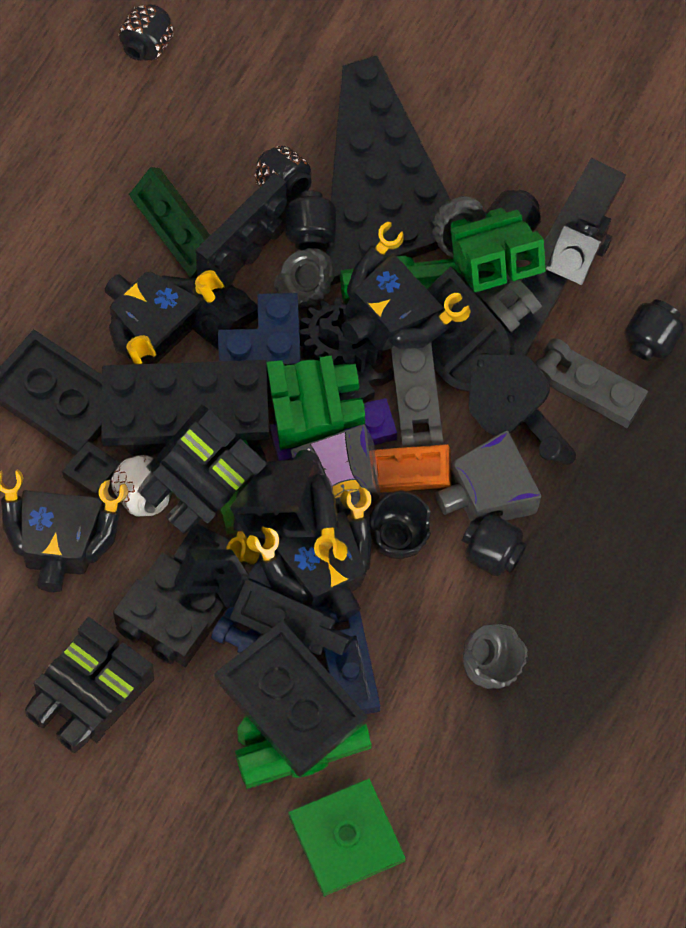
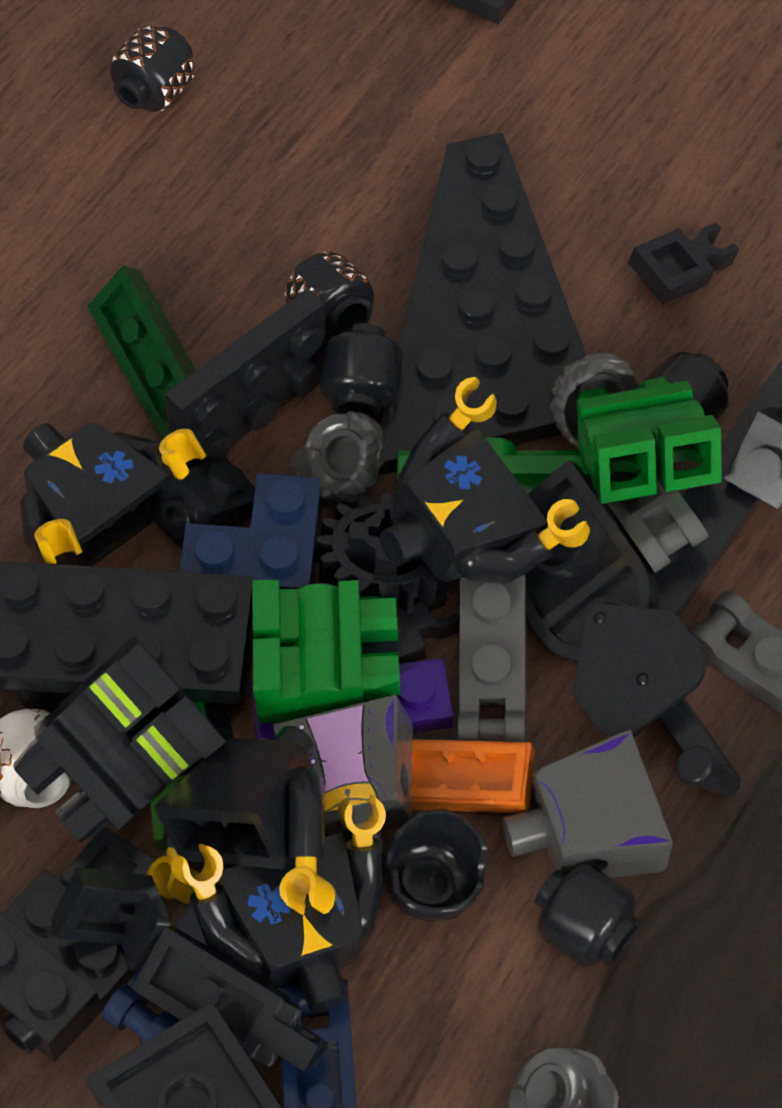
camera: 10 degrees right, 5 degrees down
(499, 132) = (678, 266): none -> black plate

